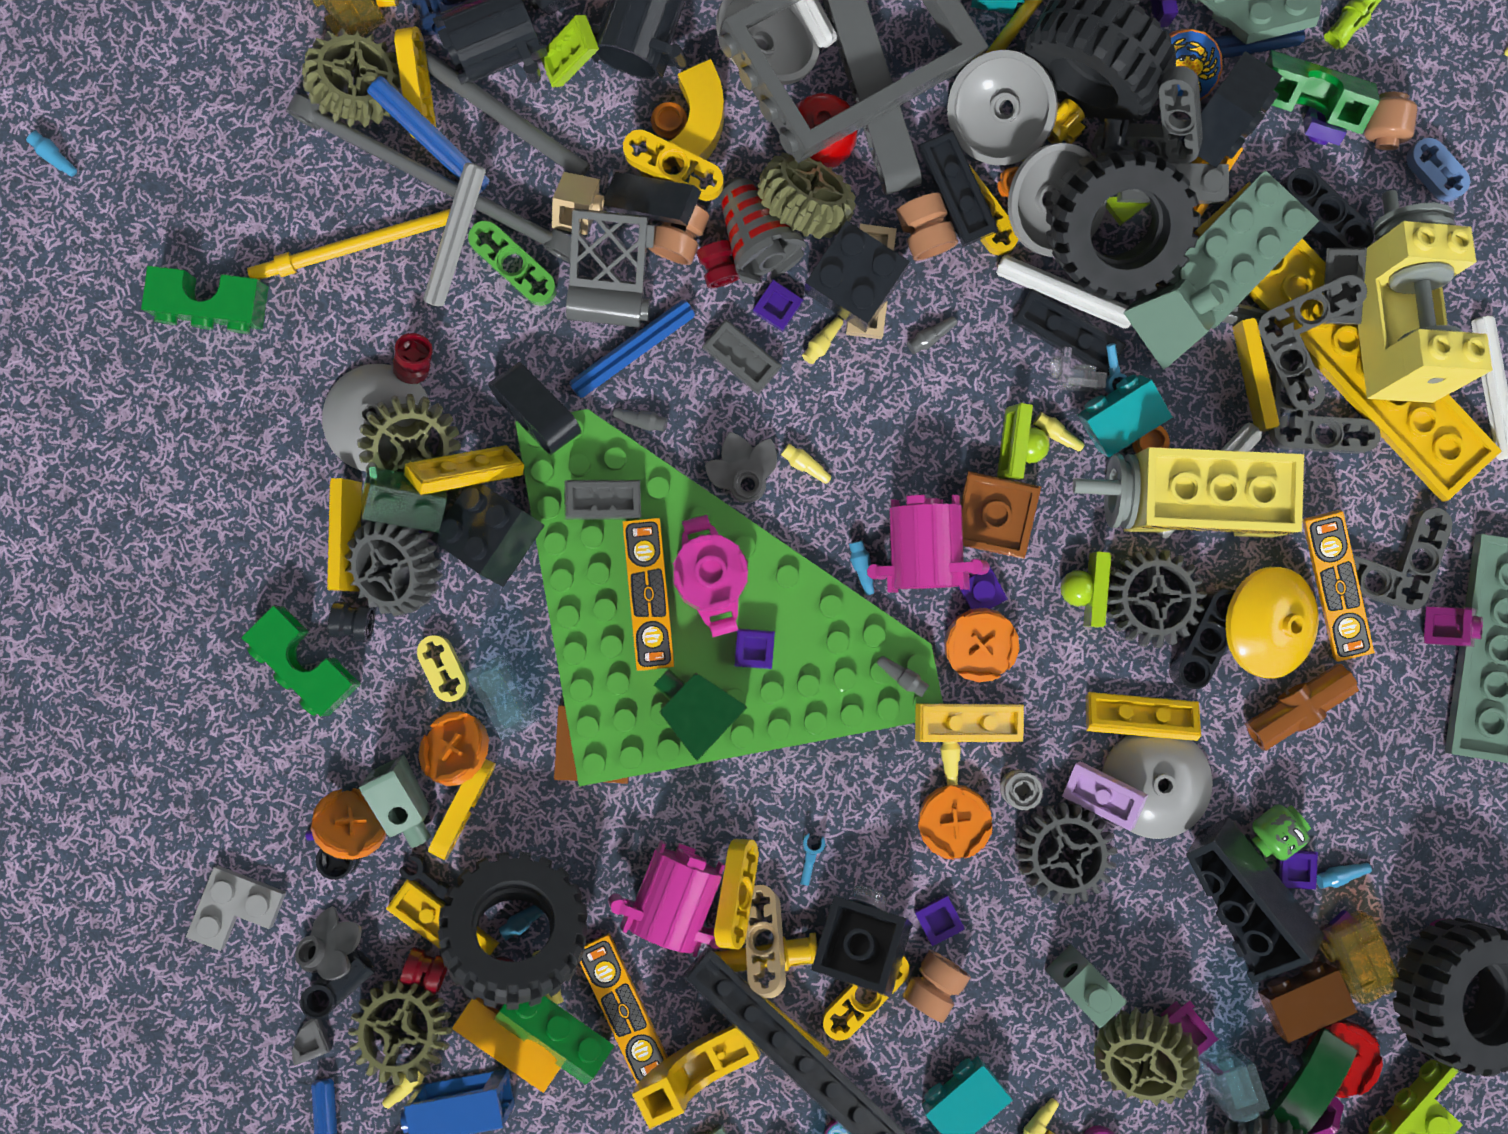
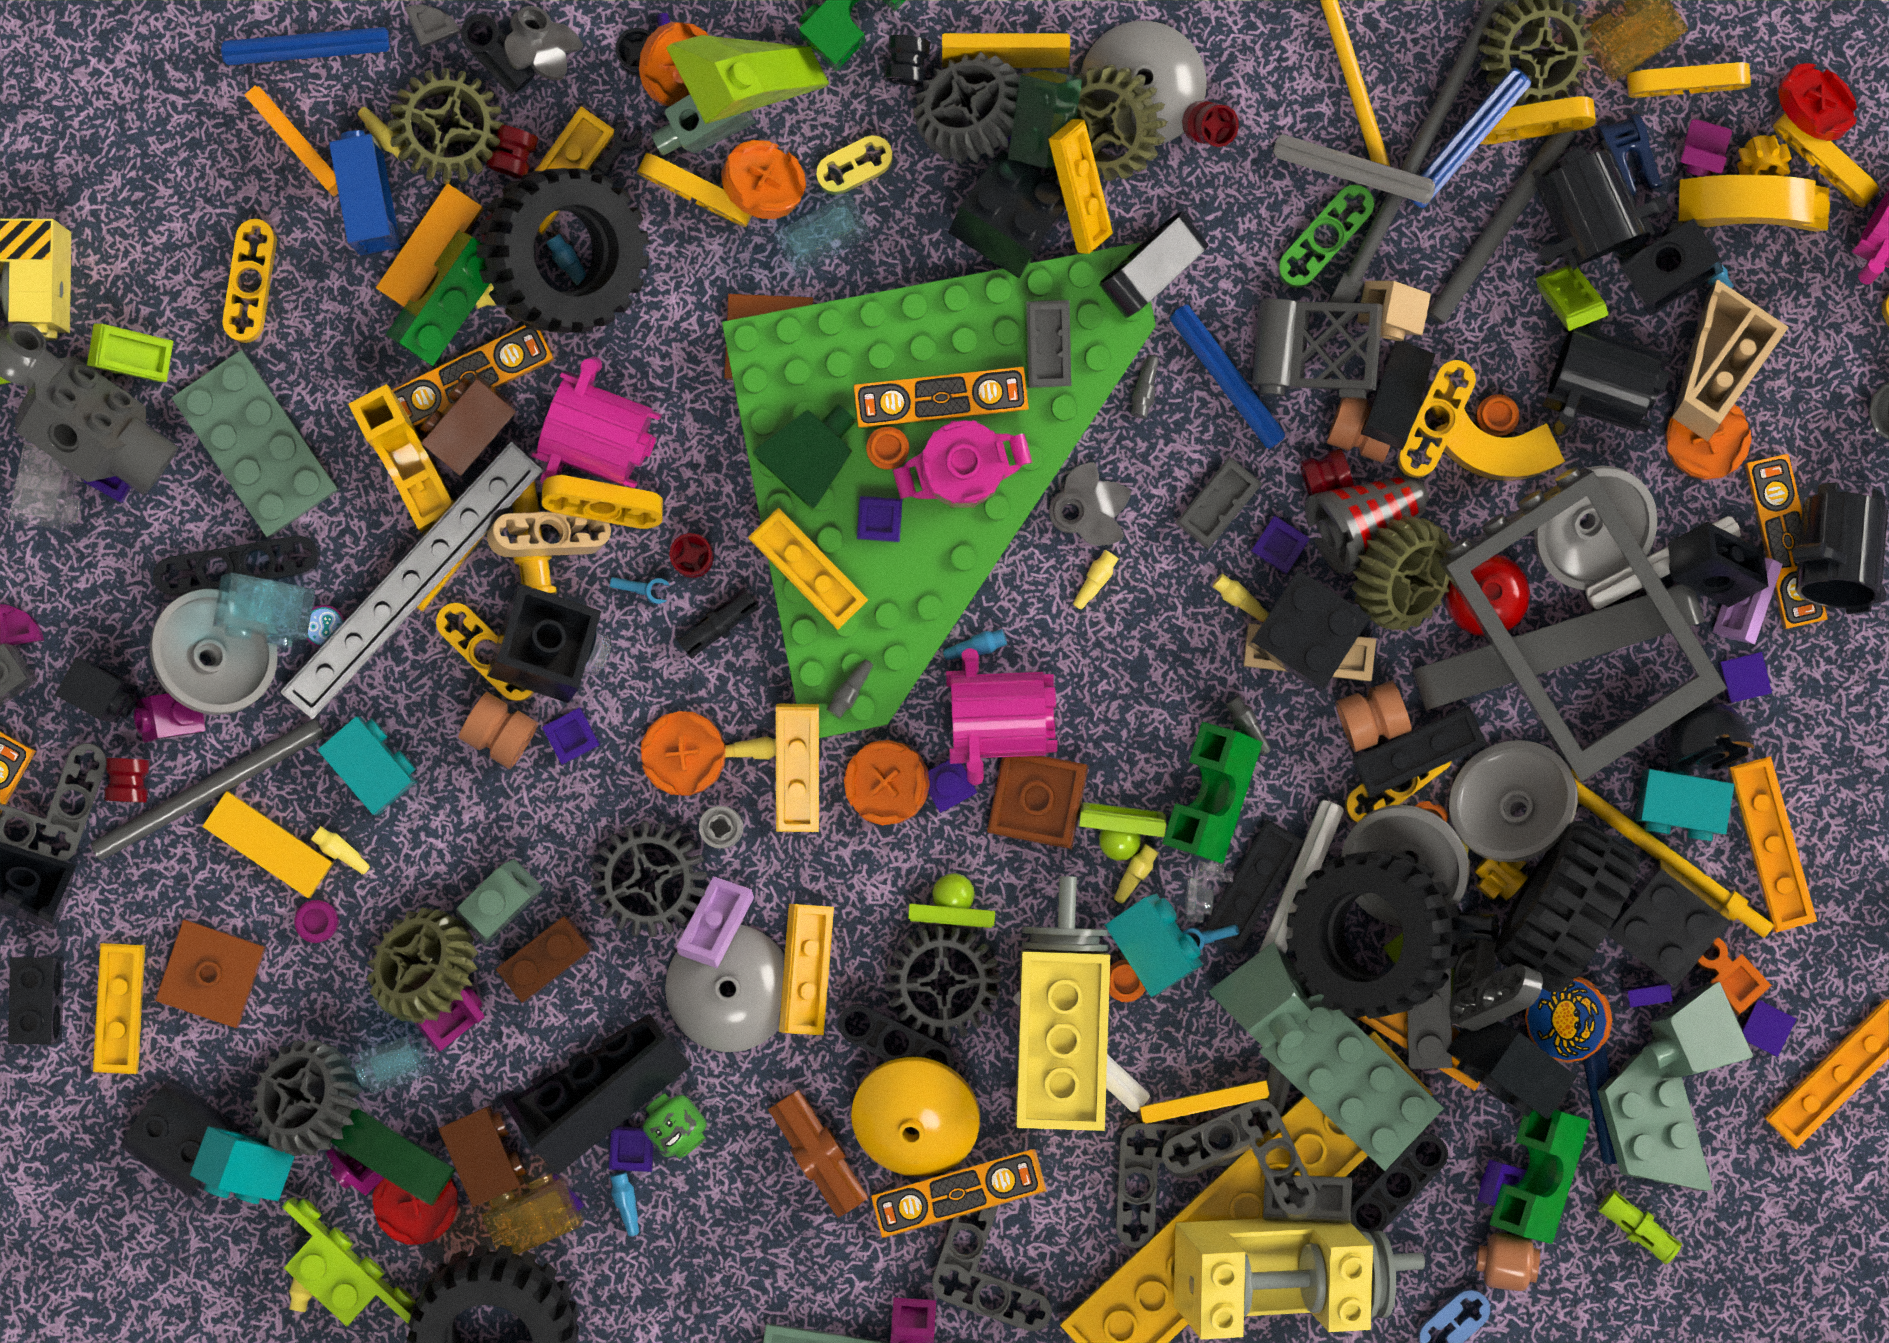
camera: 90 degrees right, 0 degrees up
(358, 768) = (743, 74): none -> lime wedge
(666, 1013) = (467, 423): none -> reddish brown brick
(692, 641) = (887, 448): none -> orange plate
(785, 820) = (690, 549): none -> dark red wheel
(798, 712) = (807, 568): none -> yellow tile
(842, 791) = (717, 623): none -> black pin
(1016, 367) = (1226, 771): none -> green arch
(1137, 945) = (544, 959): none -> reddish brown brick

